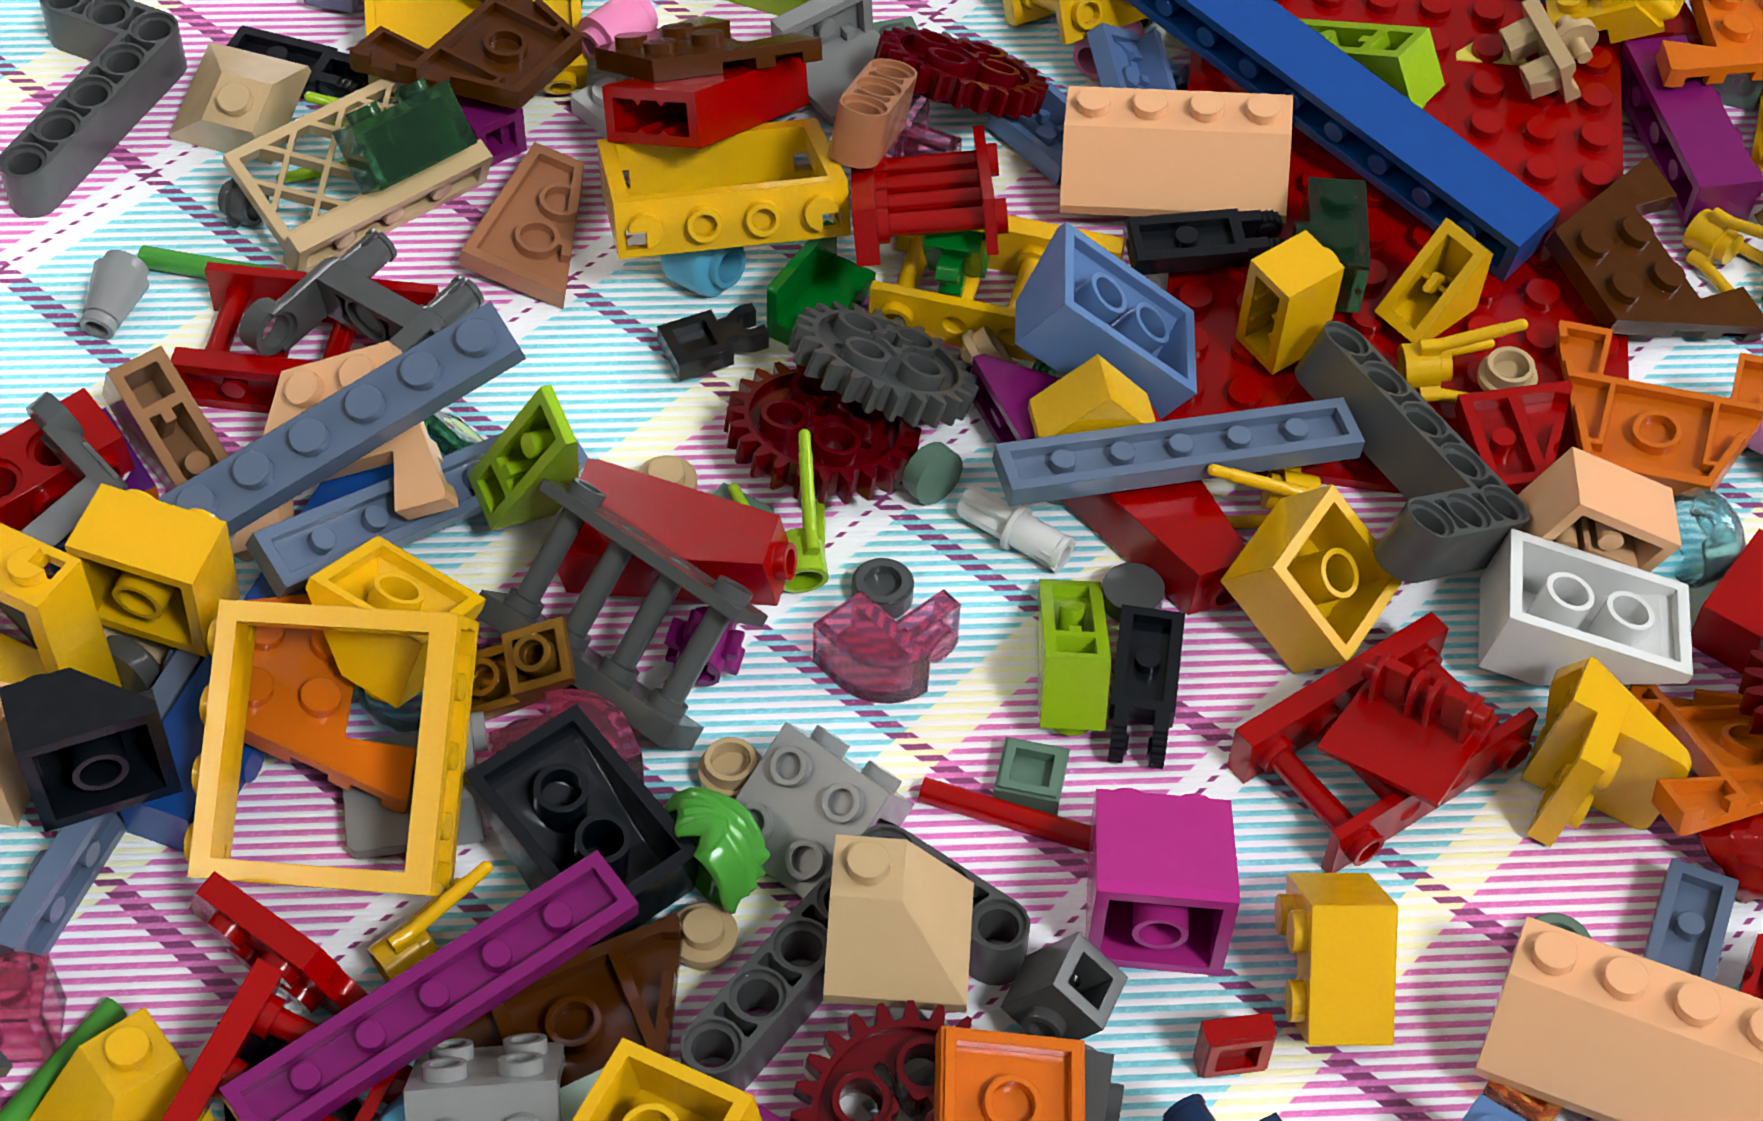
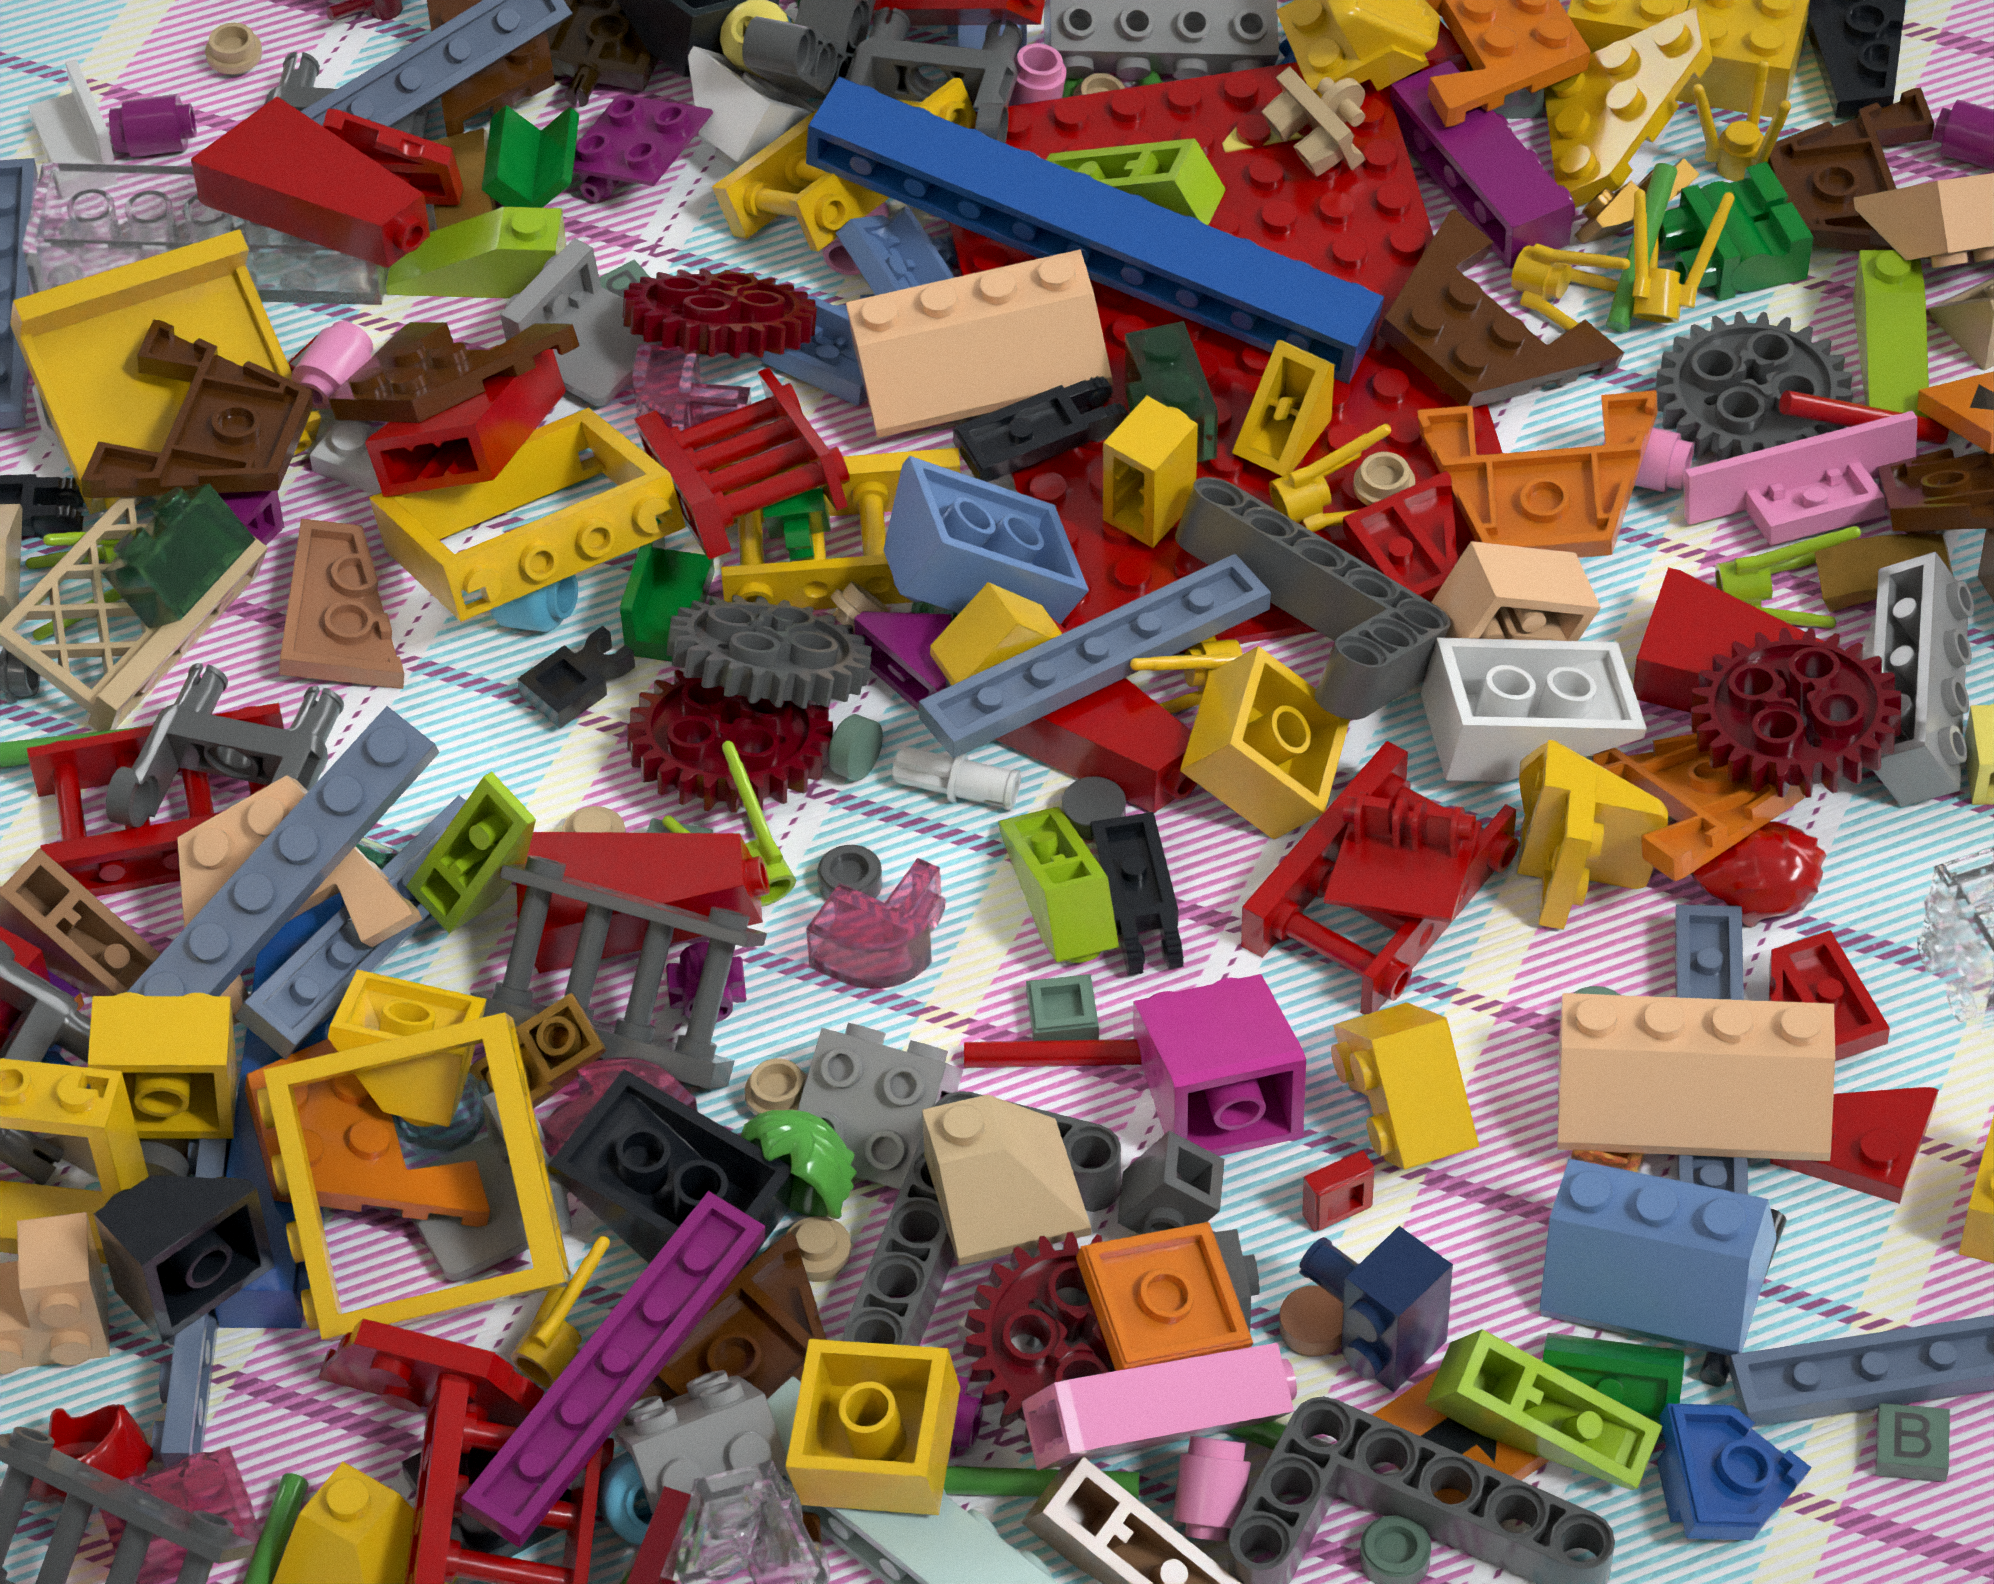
camera: 15 degrees left, 0 degrees up
(872, 113) = (659, 391): nougat beam -> none
(1709, 536) = (1623, 589): clear light blue hair -> none

